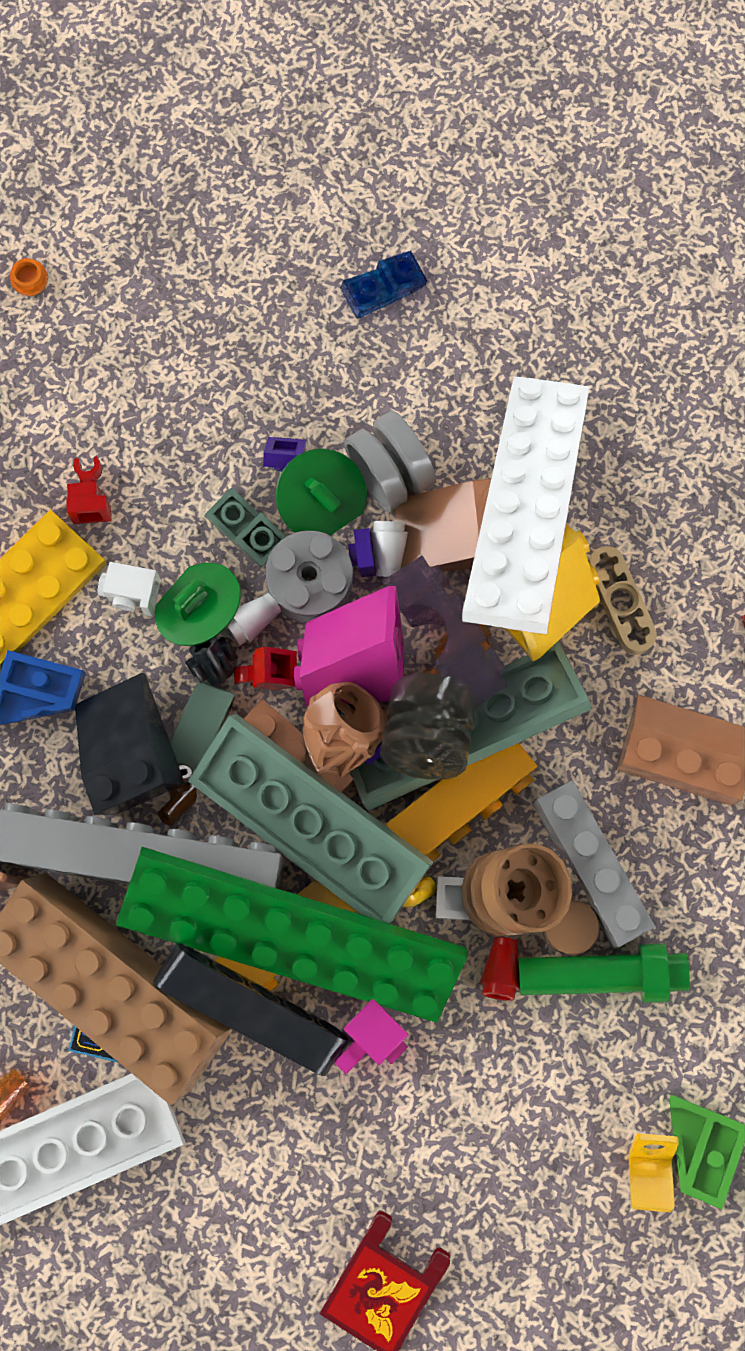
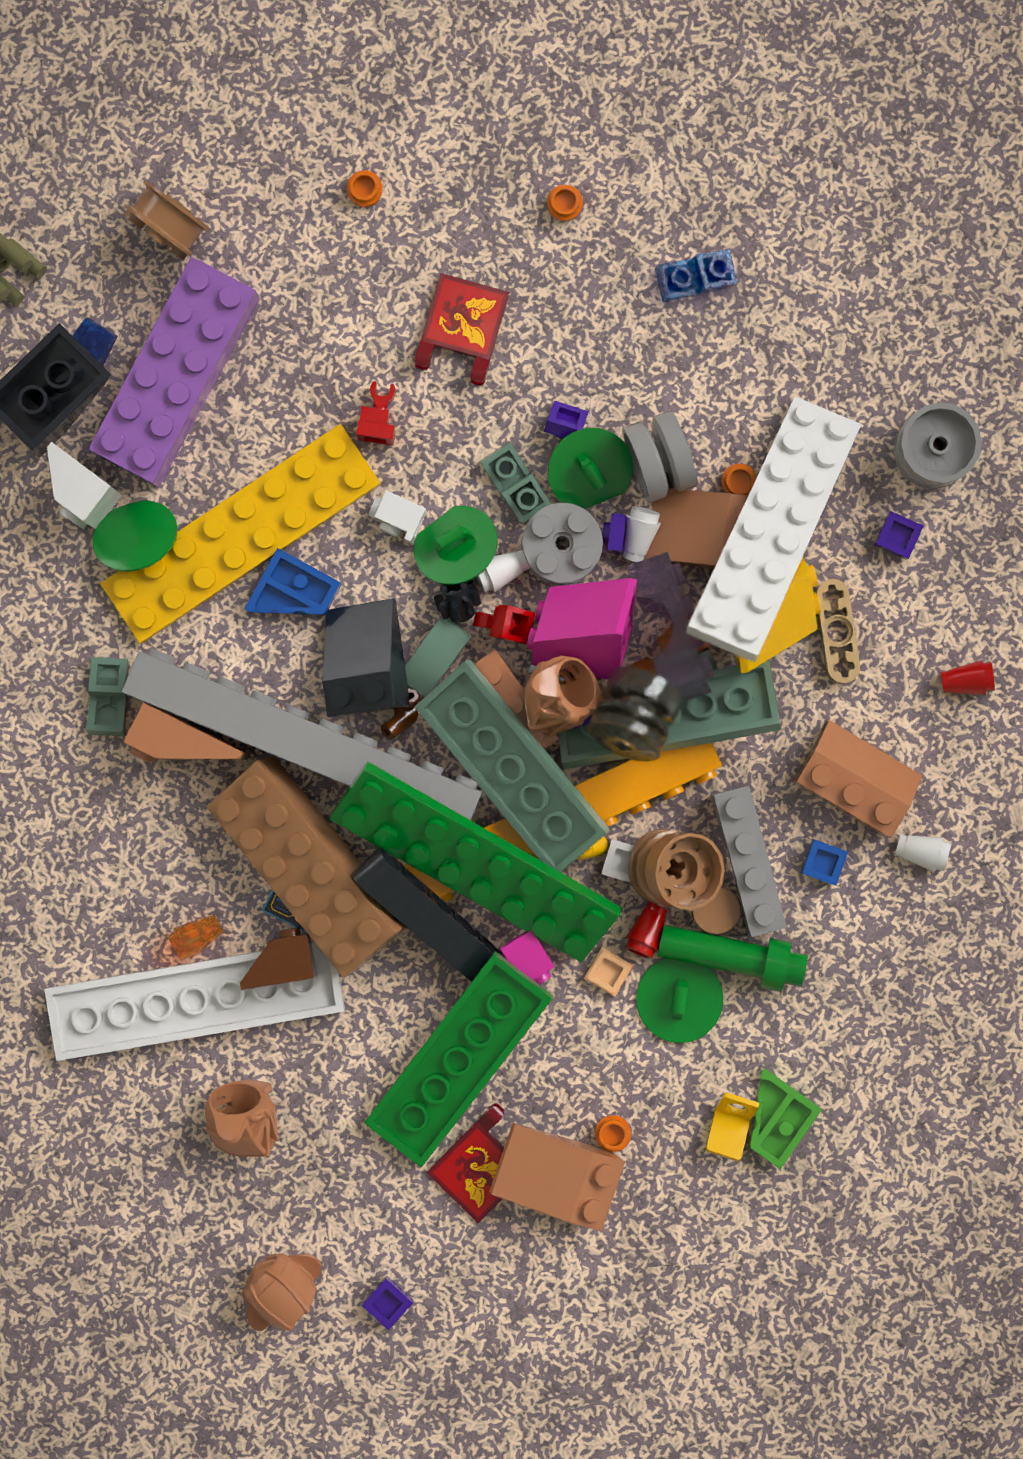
camera: 10 degrees right, 10 degrees up
(98, 1102) = (282, 961): none -> reddish brown slope
(103, 1304) = (250, 1121): none -> nougat piece
(157, 380) = (465, 321): none -> flag
(234, 245) = (564, 202): none -> orange plate
(324, 1170) = (458, 1059): none -> green plate
(470, 1026) = (608, 971): none -> light nougat tile
(470, 1283) = (557, 1176): none -> nougat slope
(476, 468) = (738, 479): none -> orange plate
(521, 1213) = (613, 1133): none -> orange plate
(557, 1040) = (679, 1000): none -> green shield
(658, 488) = (898, 535): none -> dark purple plate
(673, 387) = (952, 430): none -> light grey wheel
(675, 847) = (824, 862): none -> blue plate

